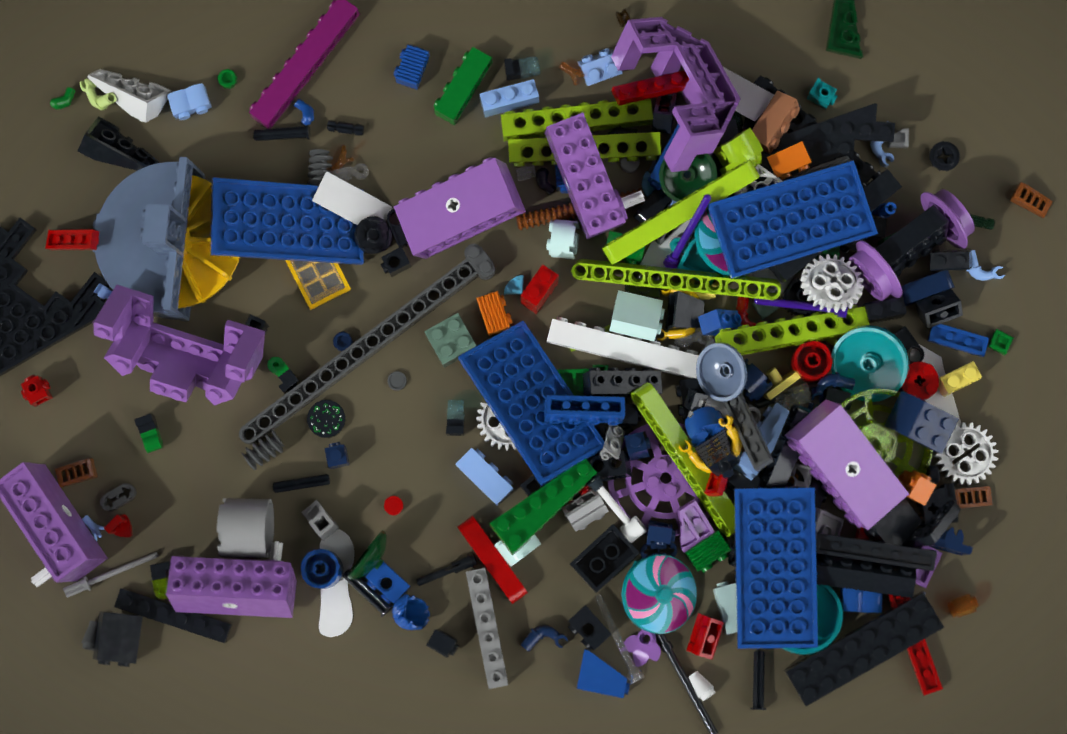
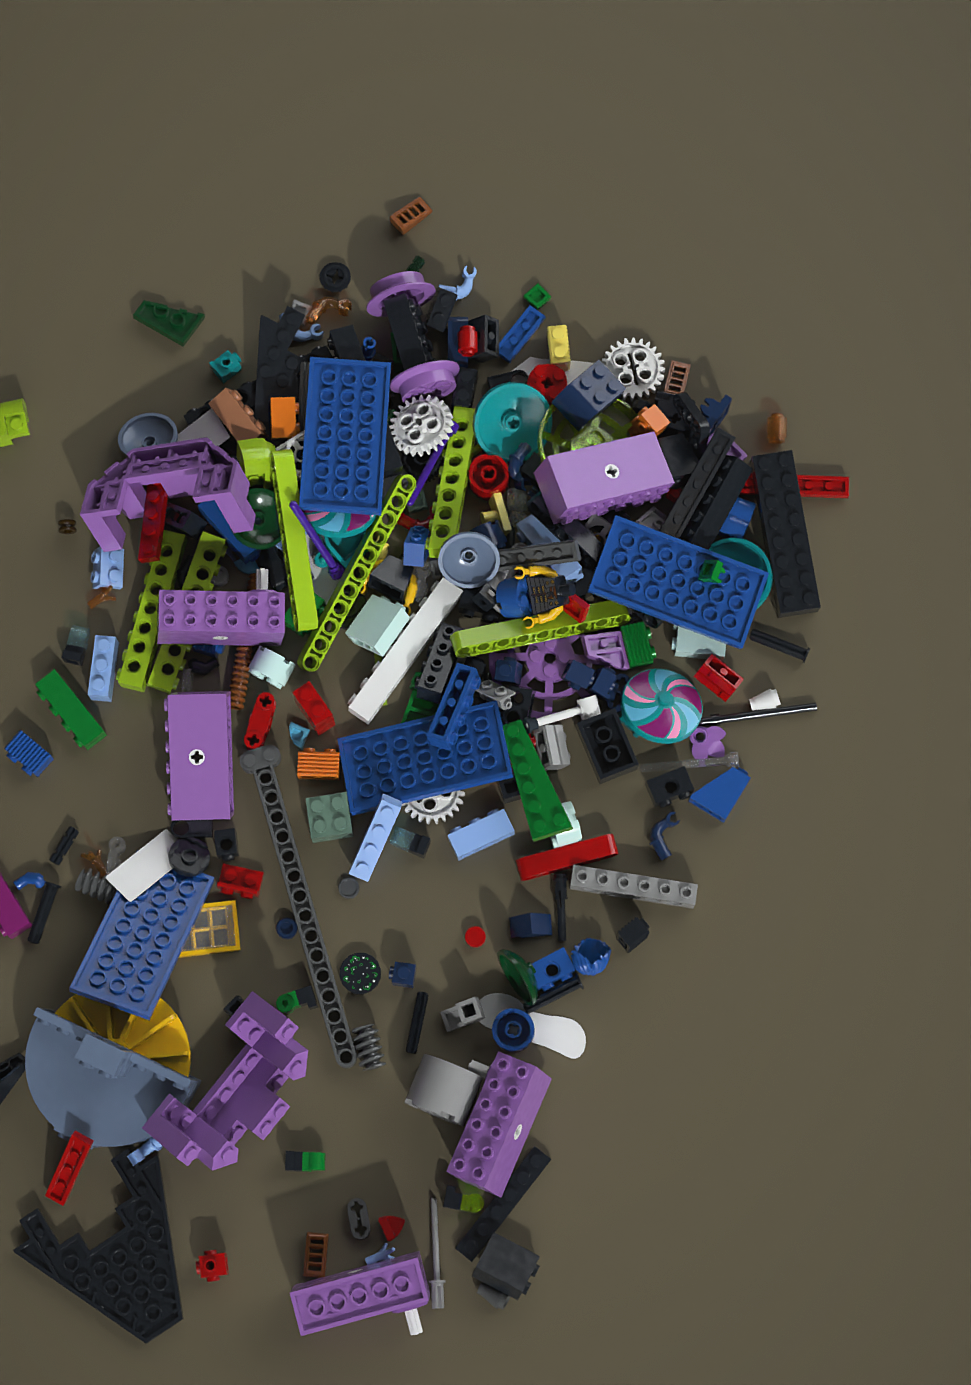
camera: 70 degrees left, 5 degrees down
(369, 286) = (240, 880): none -> red bracket
(420, 550) = (530, 925): none -> dark blue slope
(444, 386) = (375, 837): none -> light blue brick
(512, 248) = (260, 721): none -> red piece
(657, 509) = (578, 675): none -> dark blue brick
(734, 48) = (145, 431): none -> sand blue dish
(796, 594) = (711, 570): none -> green tile
(912, 155) = (321, 306): none -> clear orange piece
(929, 294) = (467, 341): none -> red brick

